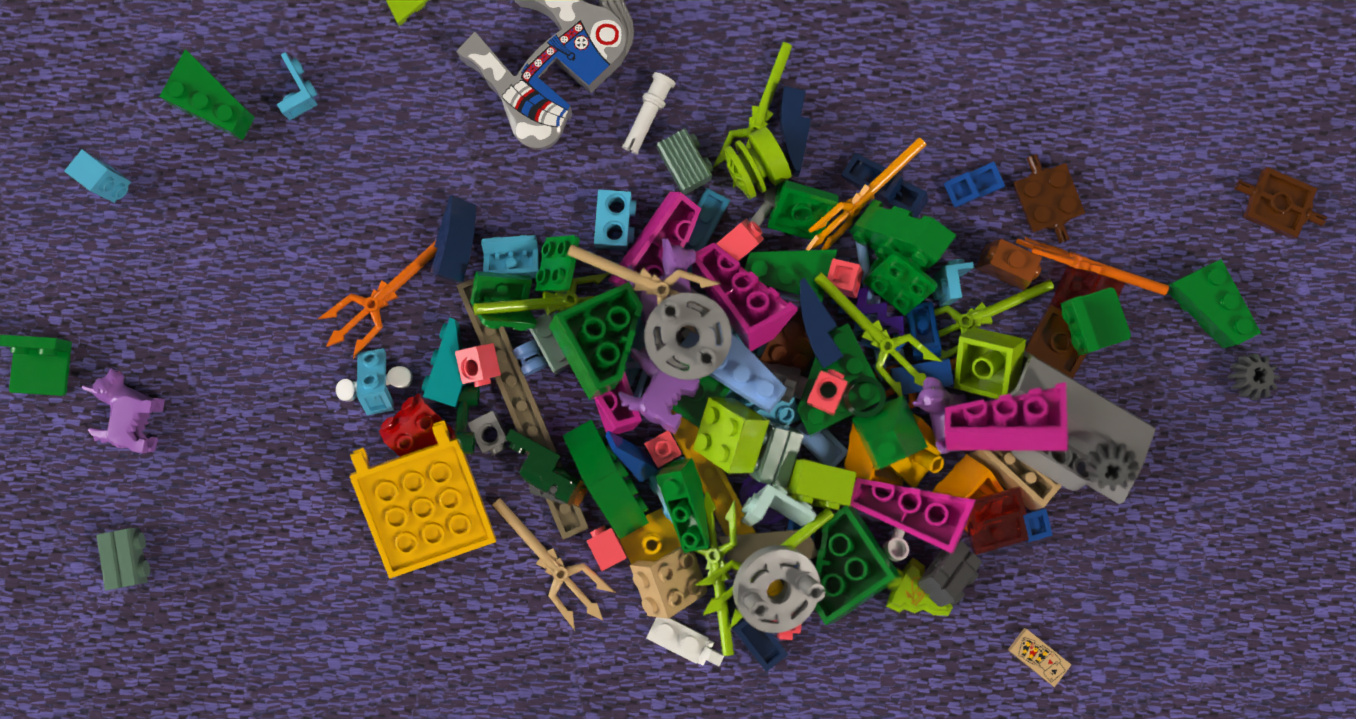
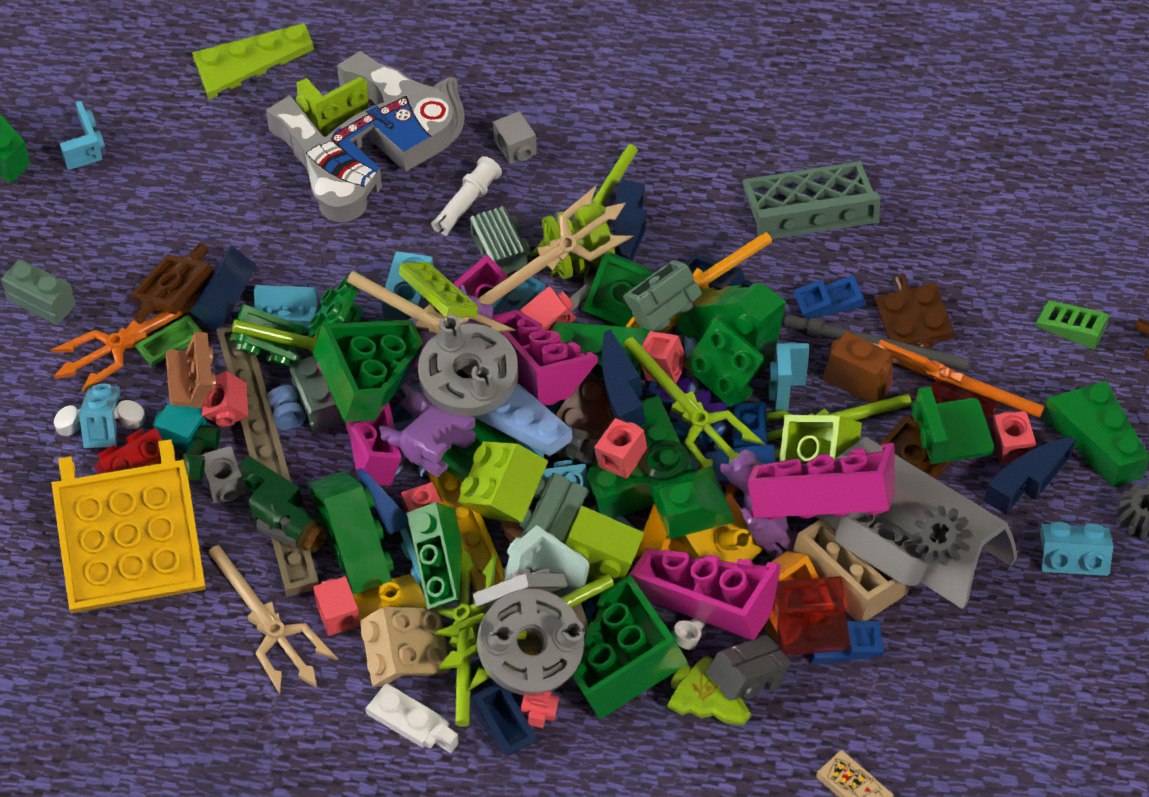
camera: 10 degrees right, 30 degrees down
(293, 263) = (38, 291): none -> sand green brick
(408, 243) = (171, 284): none -> reddish brown plate
(417, 297) = (175, 337): none -> bright green tile
(444, 350) = (190, 373): none -> nougat bracket
(514, 45) = (335, 107): none -> lime bracket
(647, 247) = (438, 289): none -> lime tile
(682, 45) = (514, 137): none -> light grey brick
(747, 188) = (560, 248): none -> tan piece
(762, 537) = (521, 580): none -> light grey wing
(842, 225) = (663, 296): none -> sand green brick
(955, 101) = (813, 213): none -> sand green fence
(968, 219) = (817, 328): none -> dark grey bar
(1153, 318) = (1008, 446): none -> coral brick
(1157, 352) = (1028, 474): none -> dark blue slope
(1191, 200) = (1079, 334): none -> bright green slope
(1199, 416) = (1076, 549): none -> medium azure bracket

